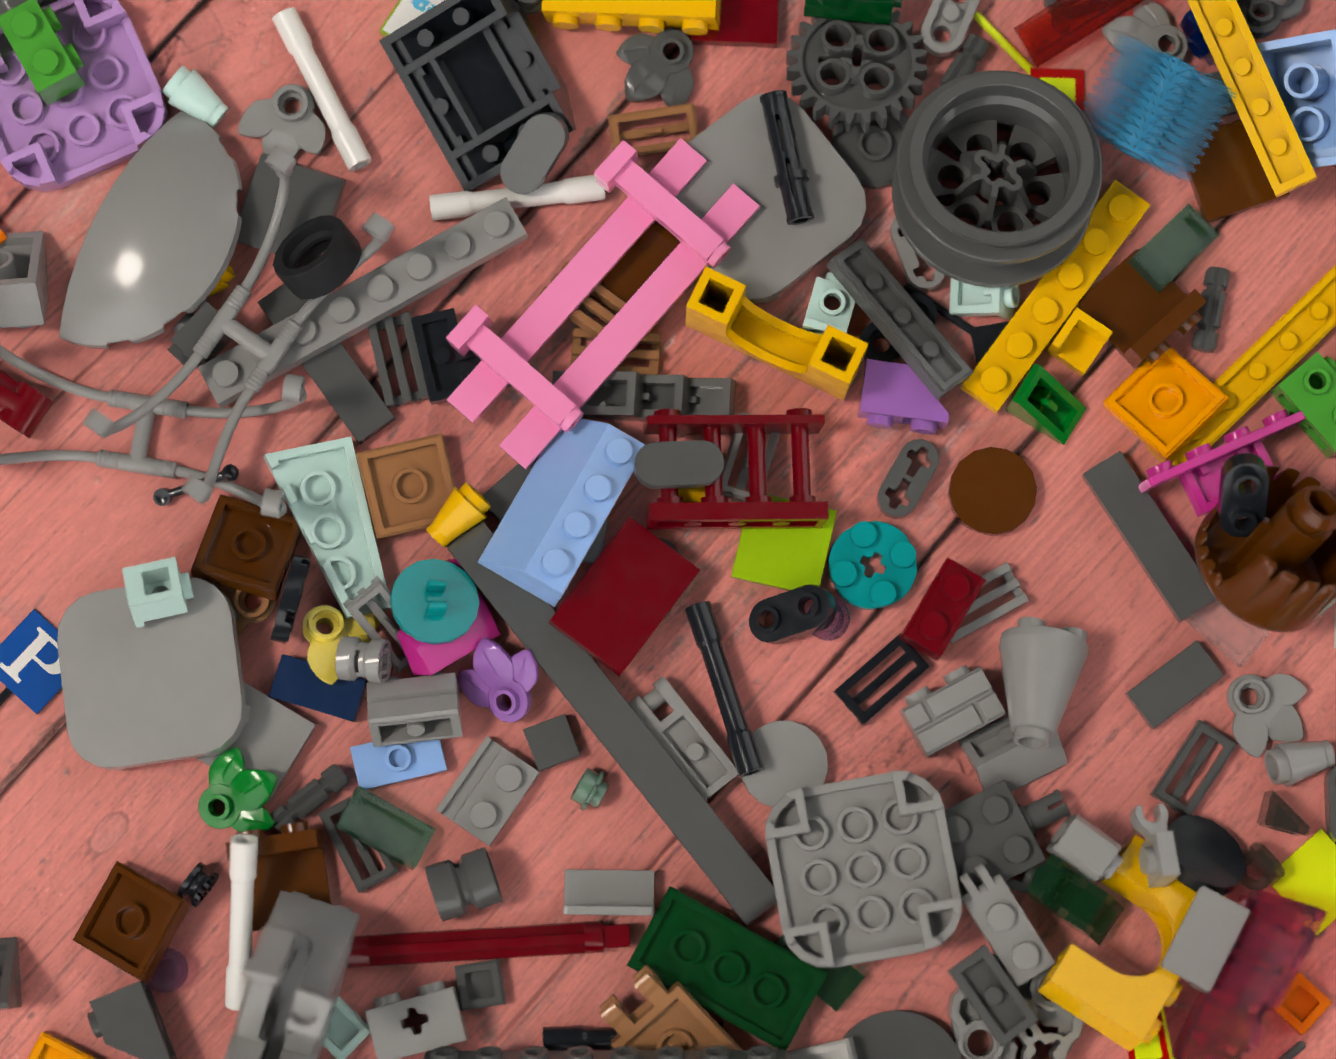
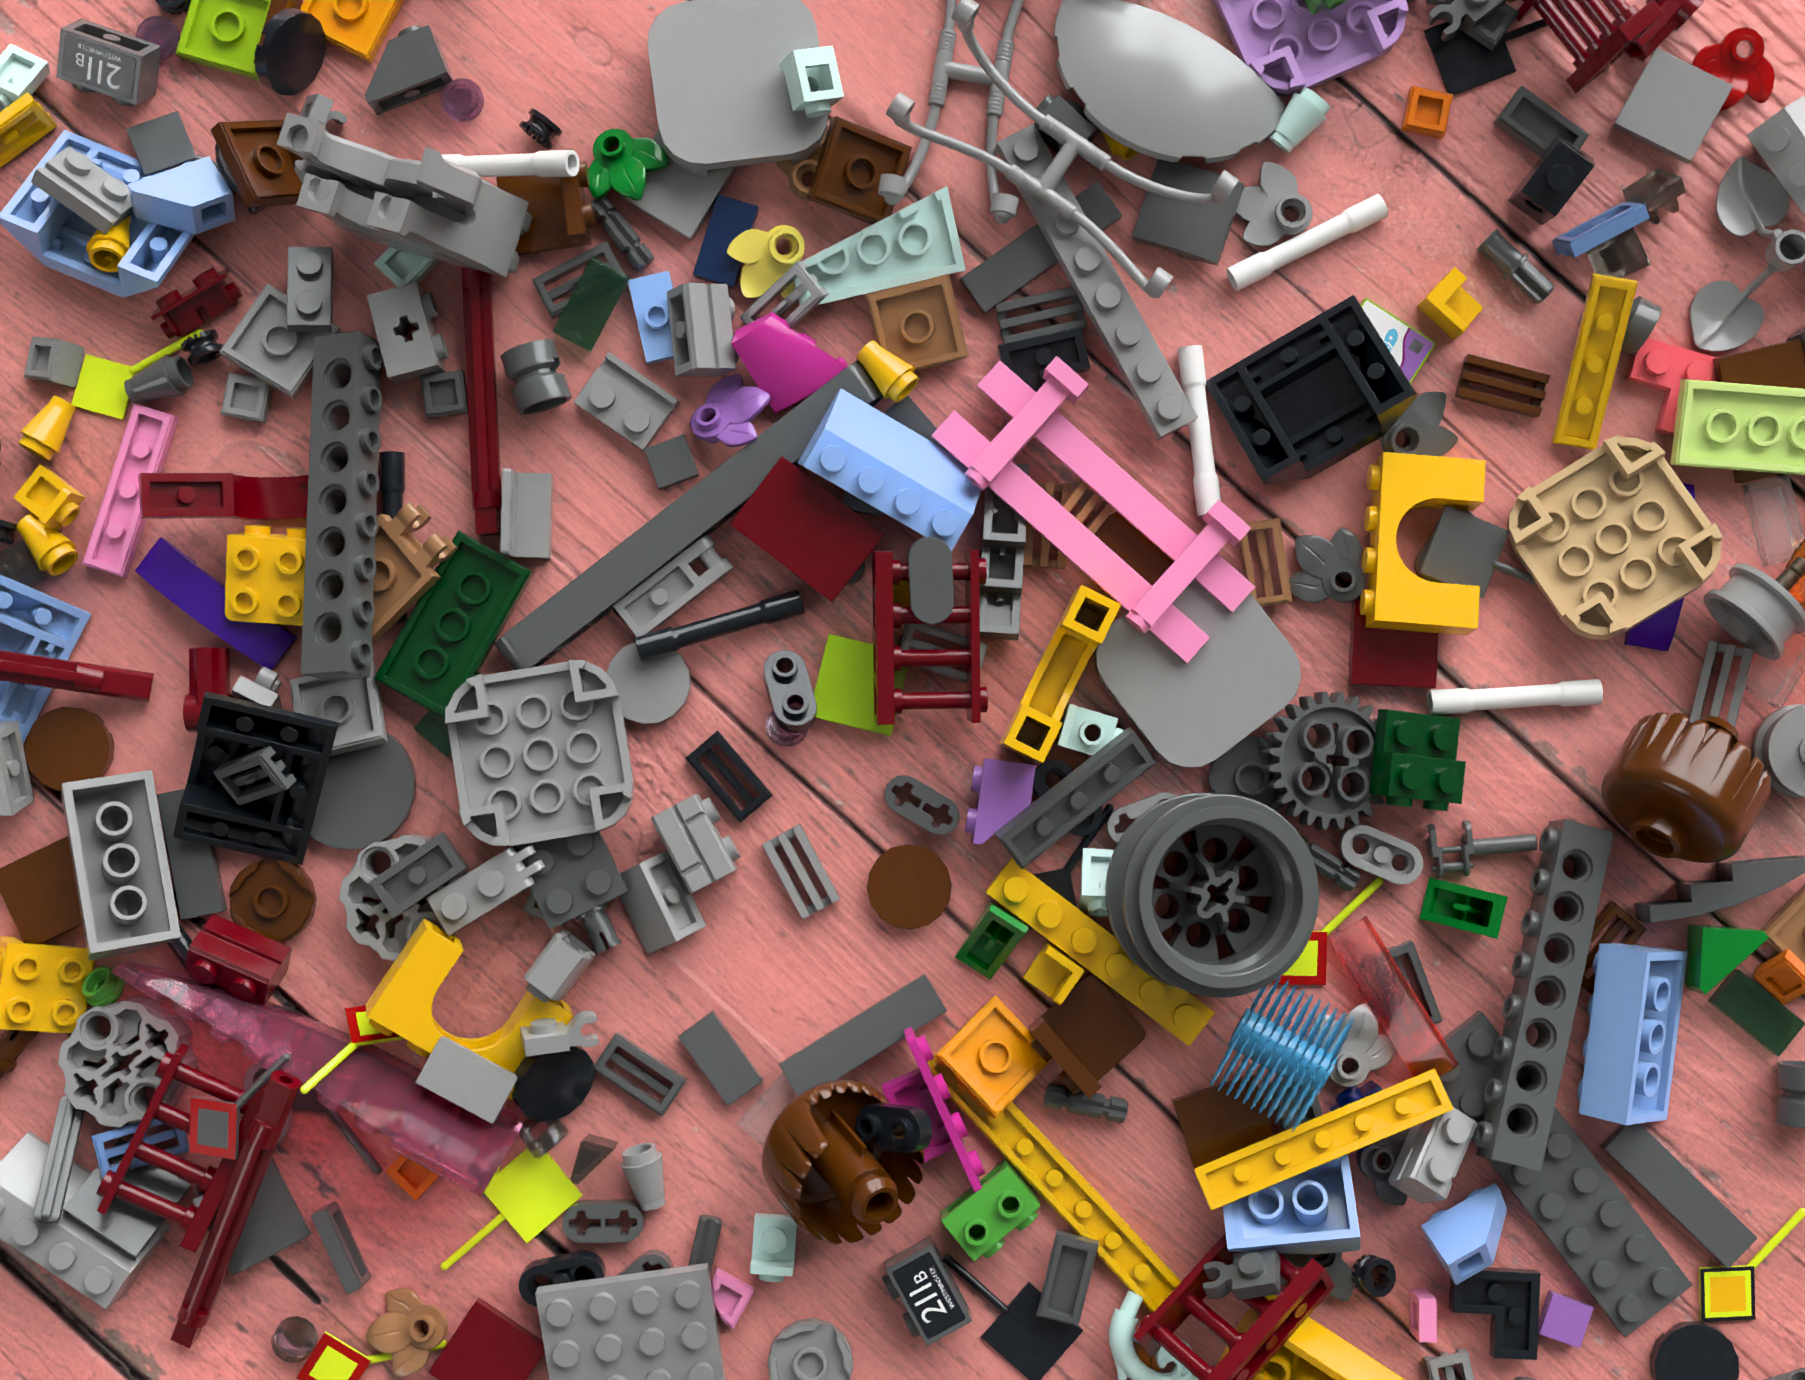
camera: 85 degrees right, 5 degrees up
(132, 922) = (505, 67): reddish brown tile -> none
(164, 496) = (931, 154): black hinge -> none
(290, 599) = (806, 210): black tile -> none
(317, 278) = (1136, 232): black tyre -> none
(363, 659) = (747, 280): light grey wheel -> none
(434, 601) = (803, 347): teal piece -> none
(534, 153) = (1240, 444): dark grey tile -> none
(589, 789) = (626, 497): sand green plate -> none
(797, 207) = (1185, 698): black pin -> none
(848, 573) = (815, 777): teal plate -> none
(942, 609) = (790, 834): dark red brick -> none
(1039, 677) = (722, 926): light grey cone -> none
(1074, 899) = (512, 956): clear green brick -> none
(1173, 248) = (1145, 1068): clear green tile -> none
(1271, 713) = (690, 1148): light grey plate -> none

